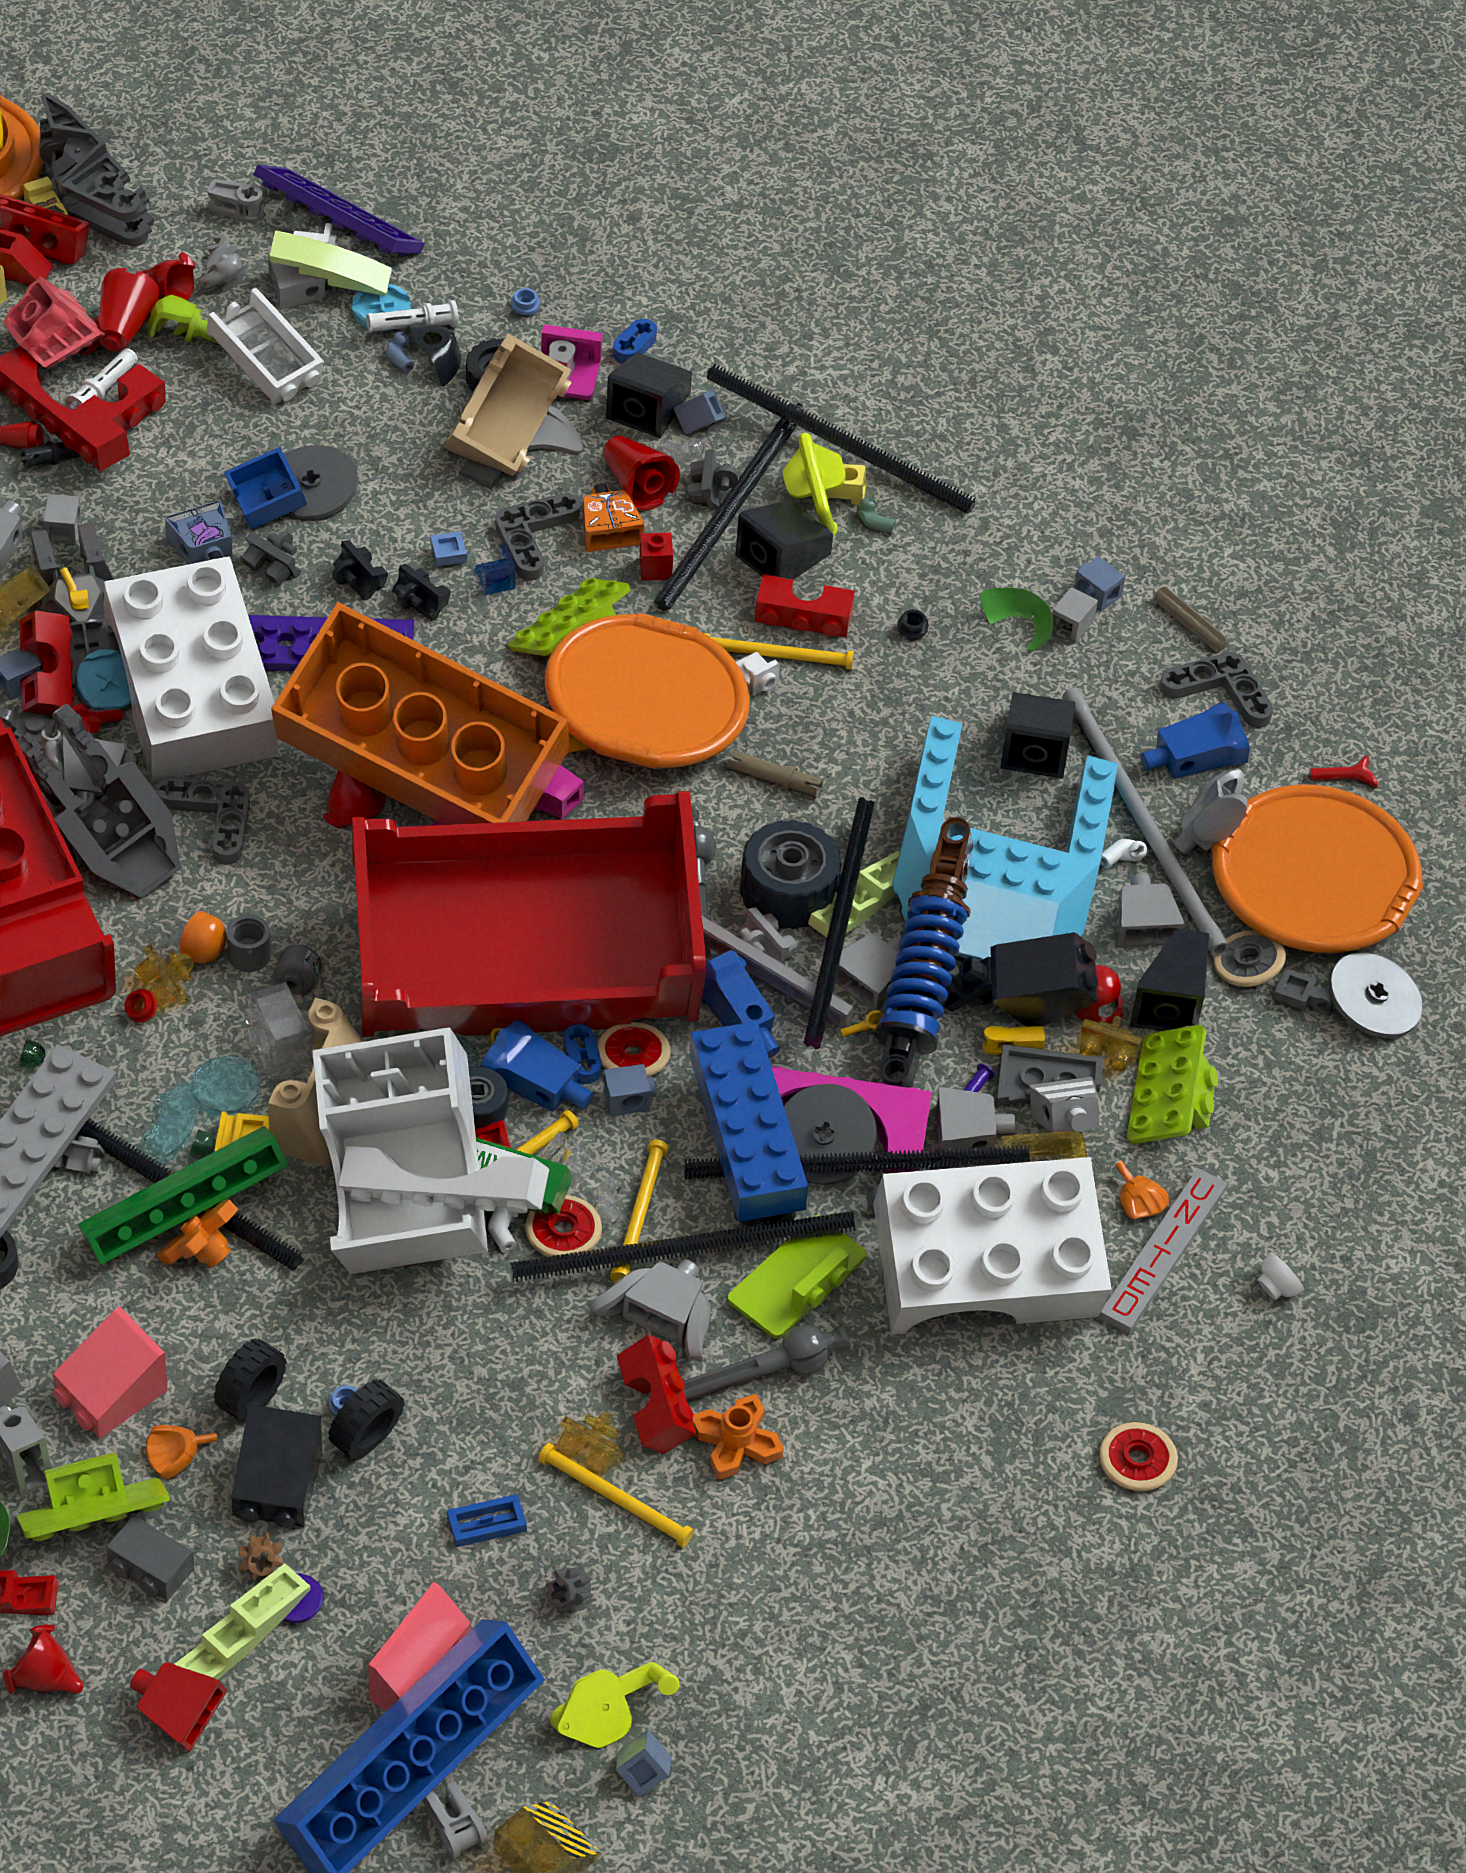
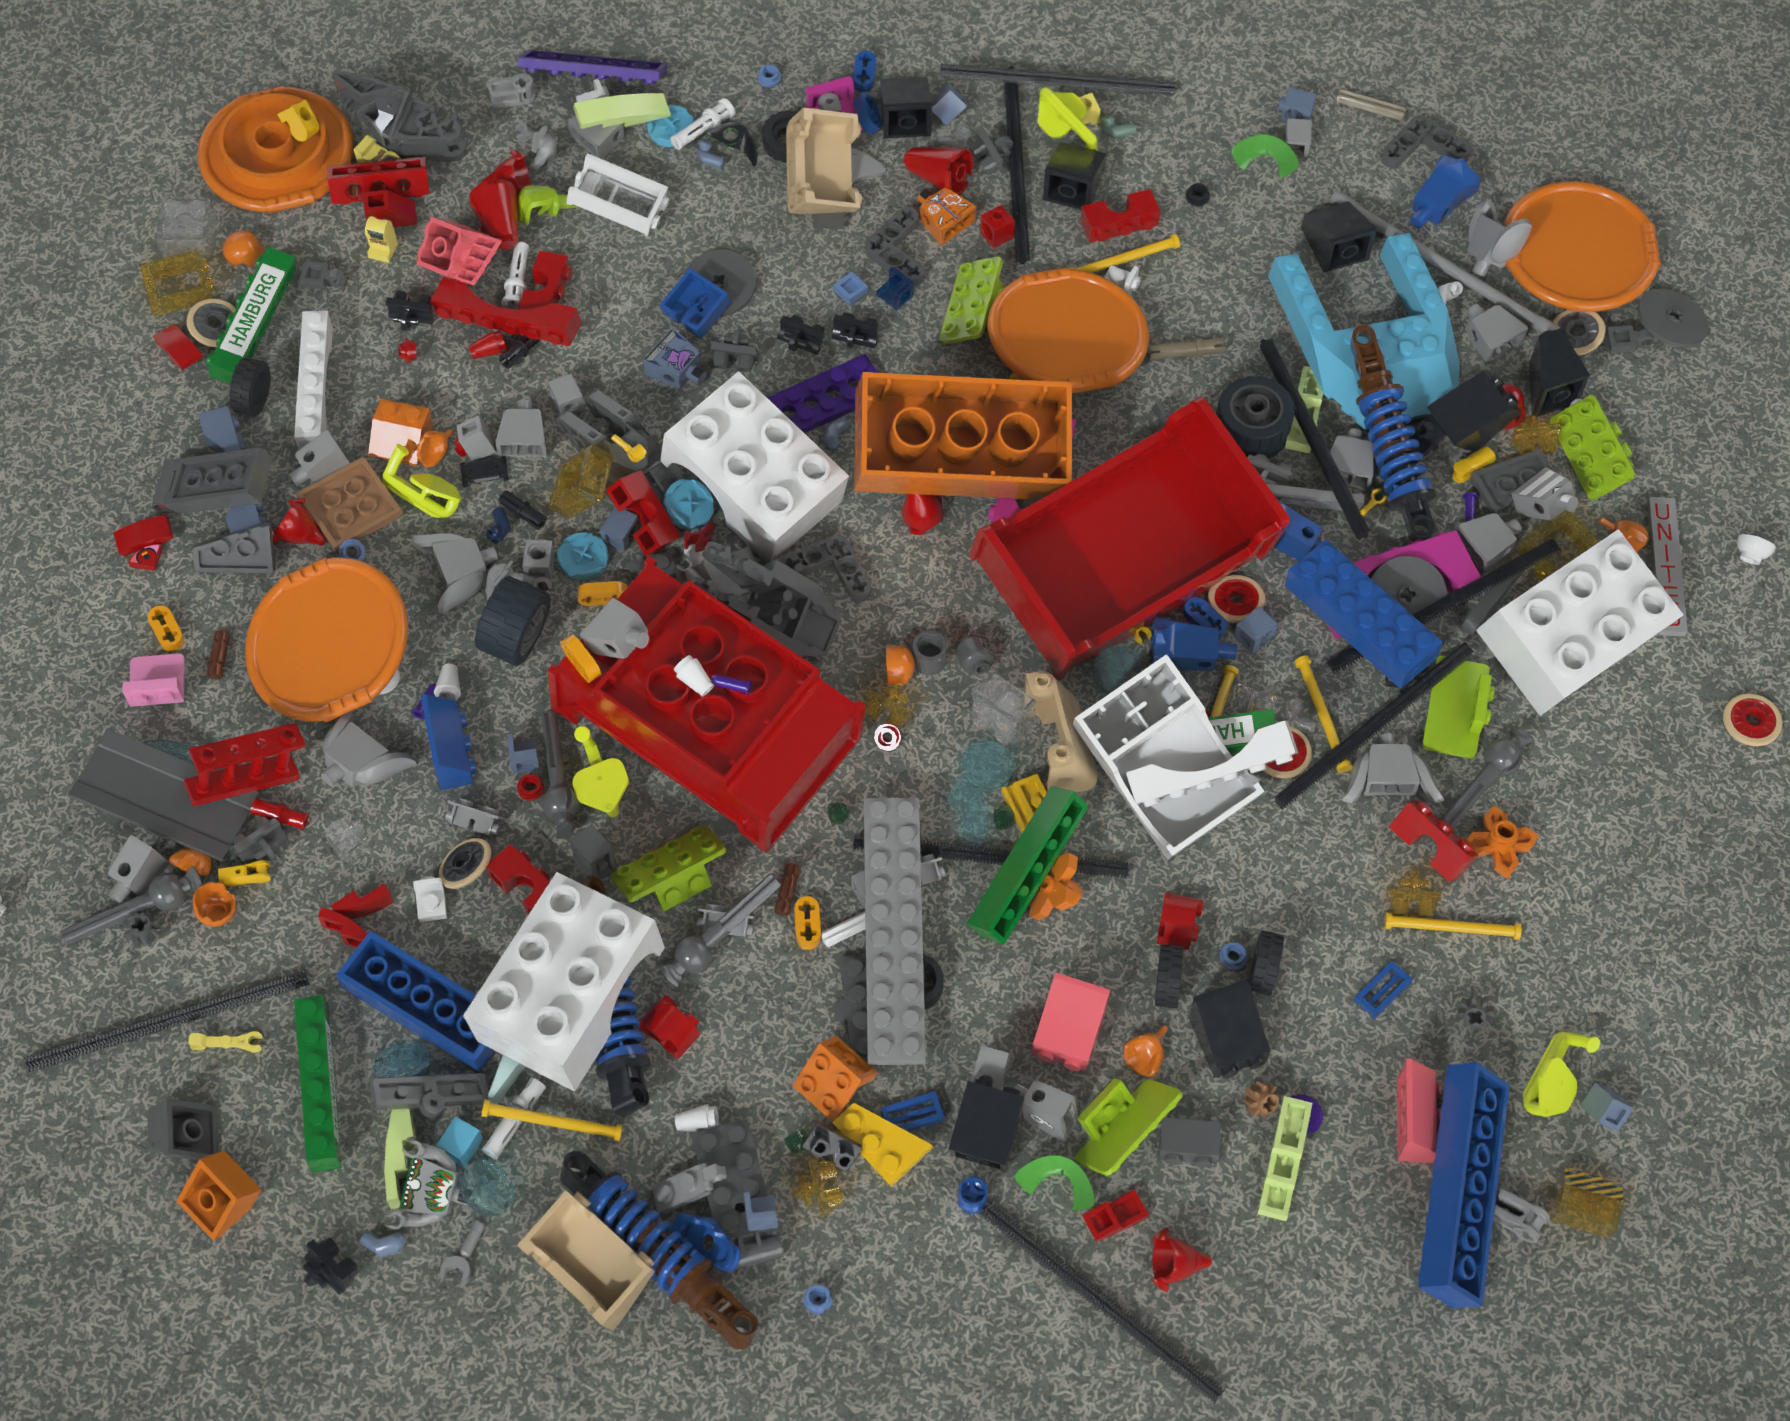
camera: 25 degrees left, 10 degrees up
(178, 1701) = (1284, 1235): red torso -> none
(312, 1335) = (1178, 920): none -> red cylinder
(597, 383) = (868, 113): none -> blue beam
(1356, 772) = (1550, 164): red piece -> none

